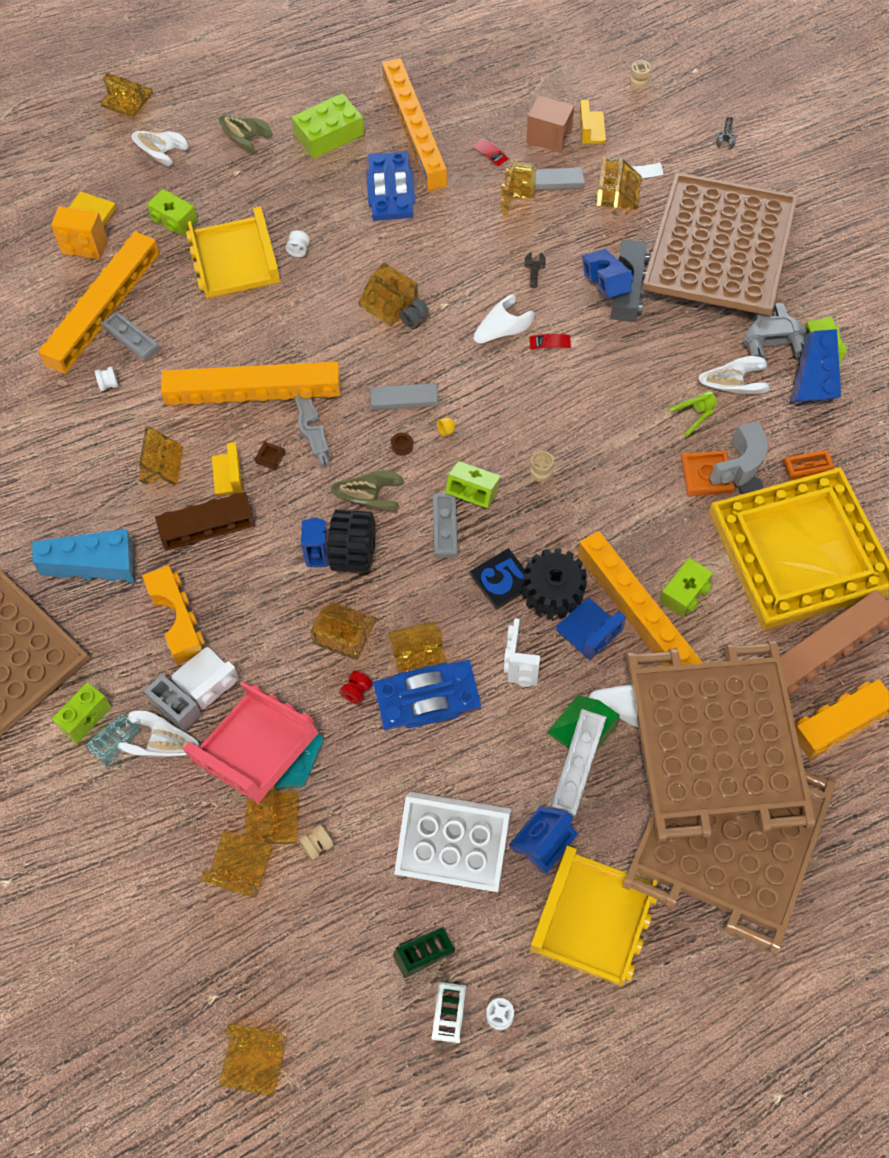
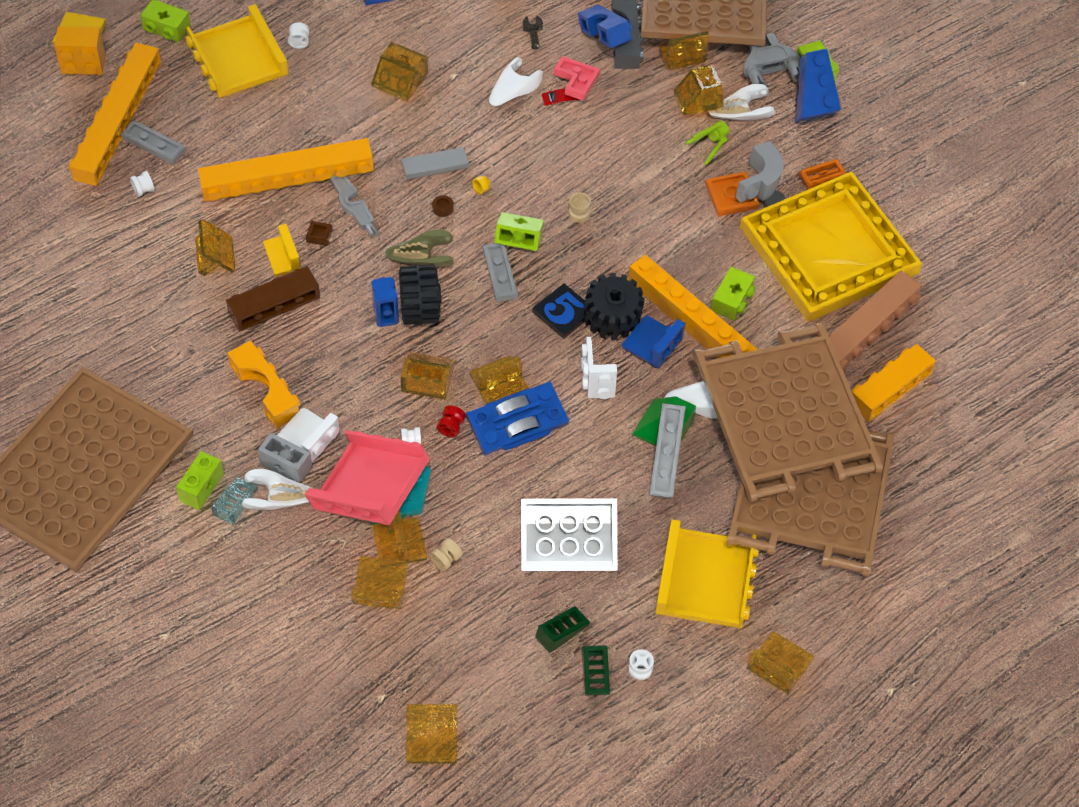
camera: 15 degrees left, 5 degrees down
(87, 556) = (167, 344): dark azure wedge -> none
(309, 701) = (411, 435): none -> white wheel
(412, 314) = (428, 85): dark grey wheel -> none
(545, 837) = (650, 517): blue bracket -> none
(572, 323) = (580, 75): none -> coral plate
(657, 1040) = (779, 662): none -> clear yellow bracket
(686, 310) = (685, 51): none -> clear yellow bracket
(693, 356) = (699, 91): none -> clear yellow slope

